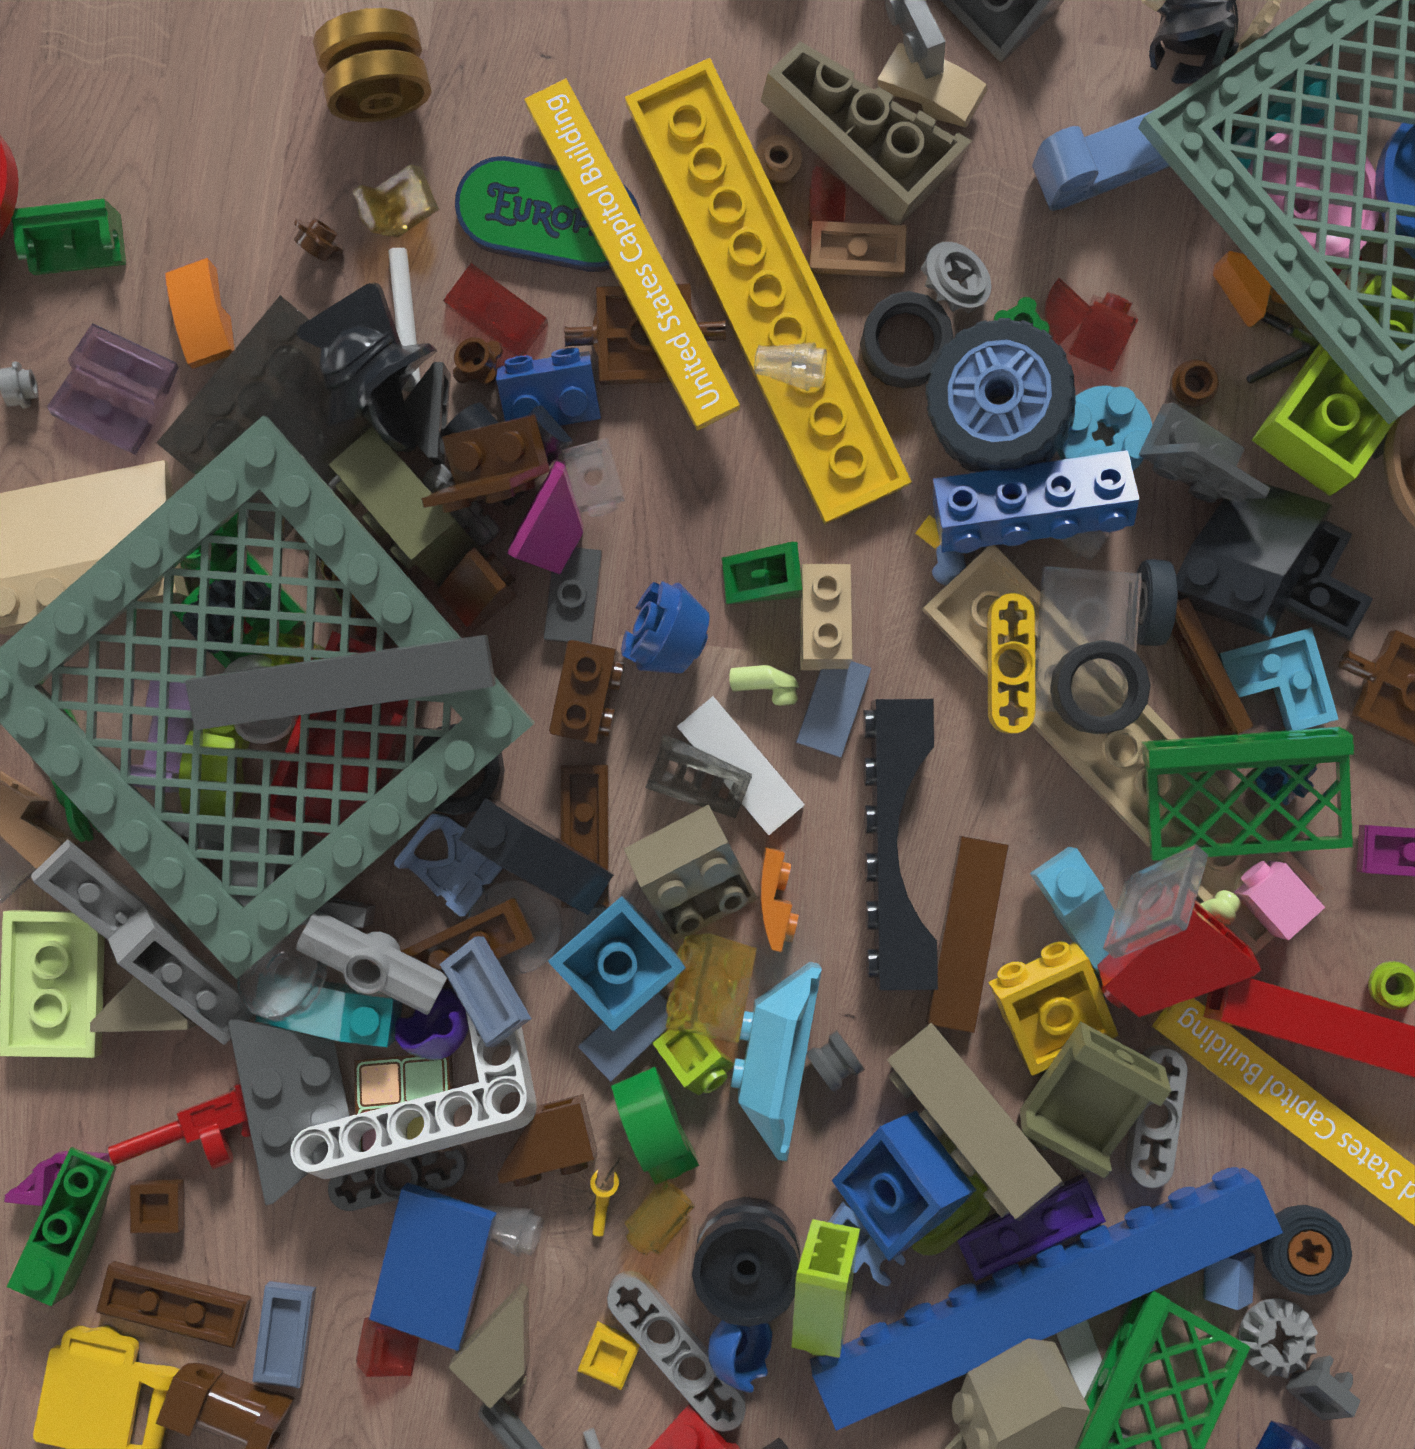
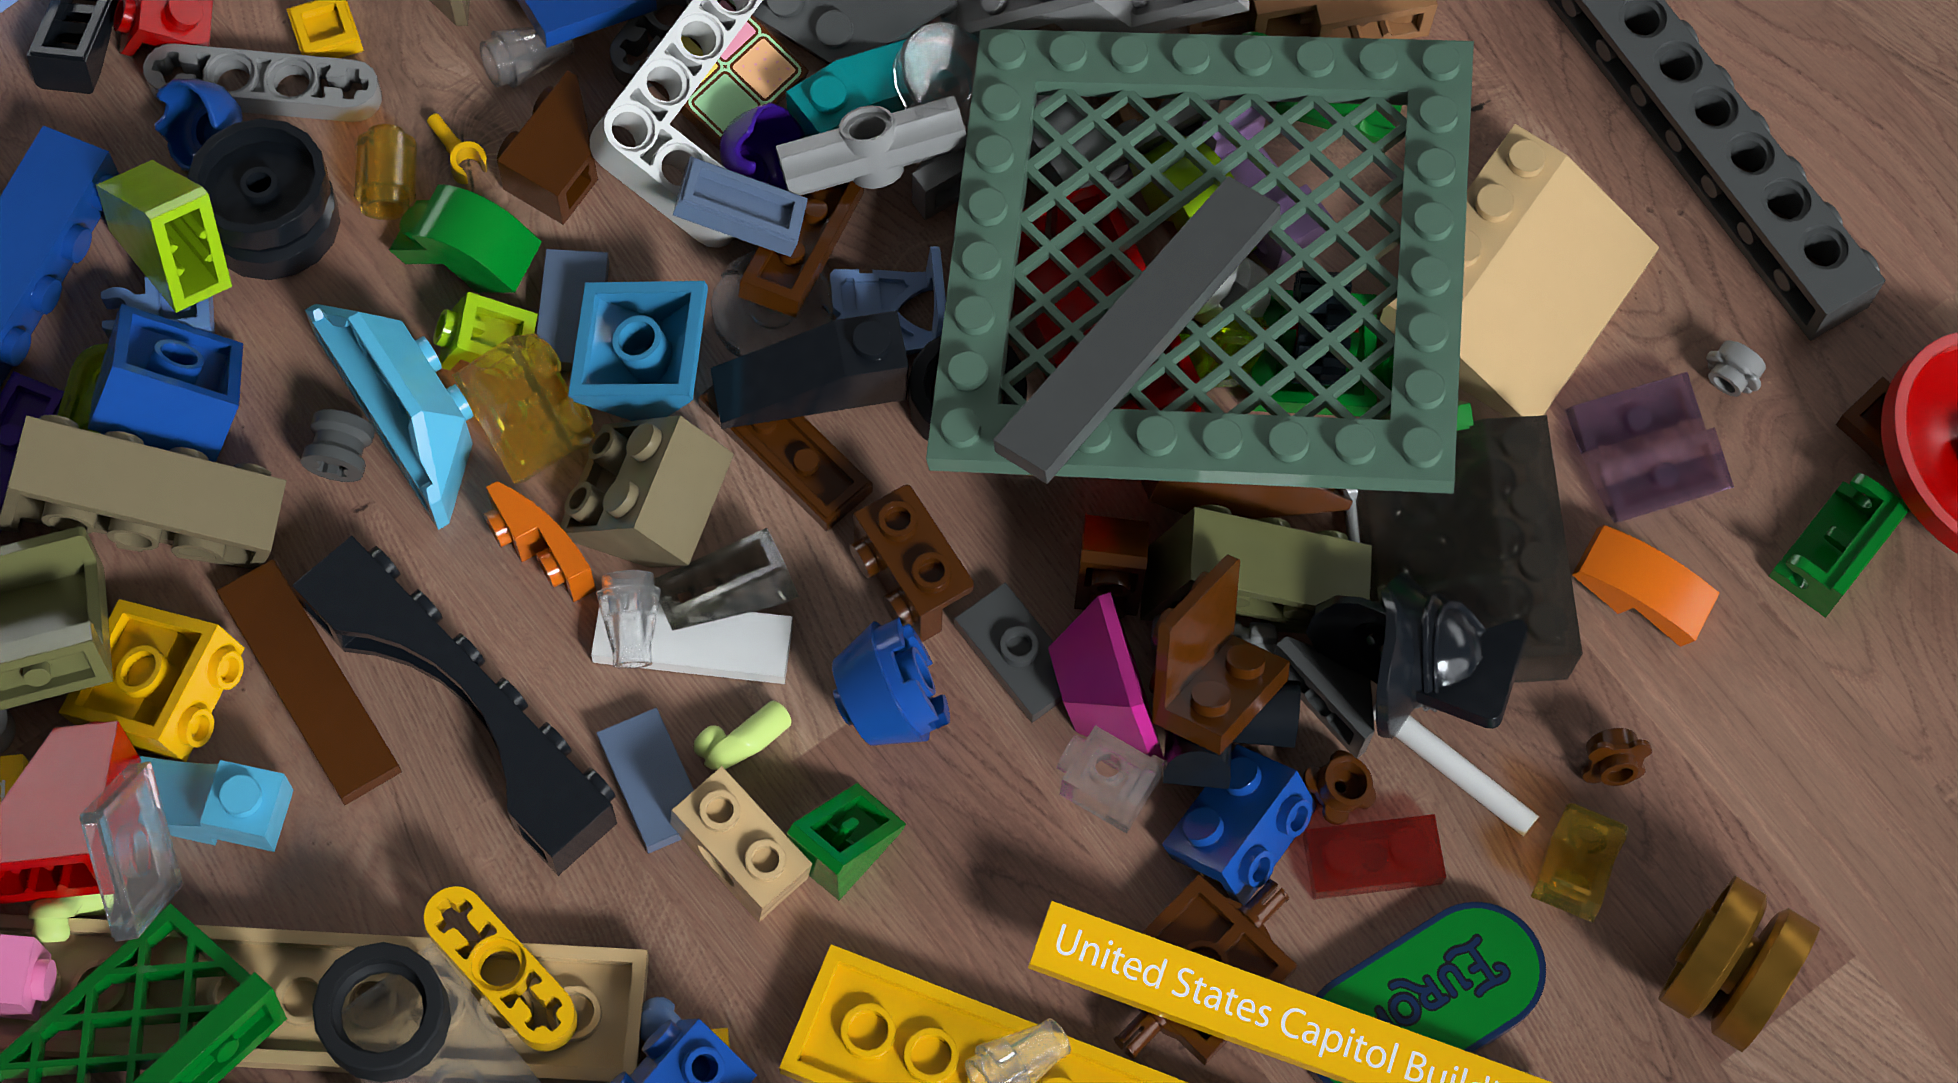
camera: 130 degrees right, 20 degrees down
(768, 802) = (629, 615): none -> clear cone

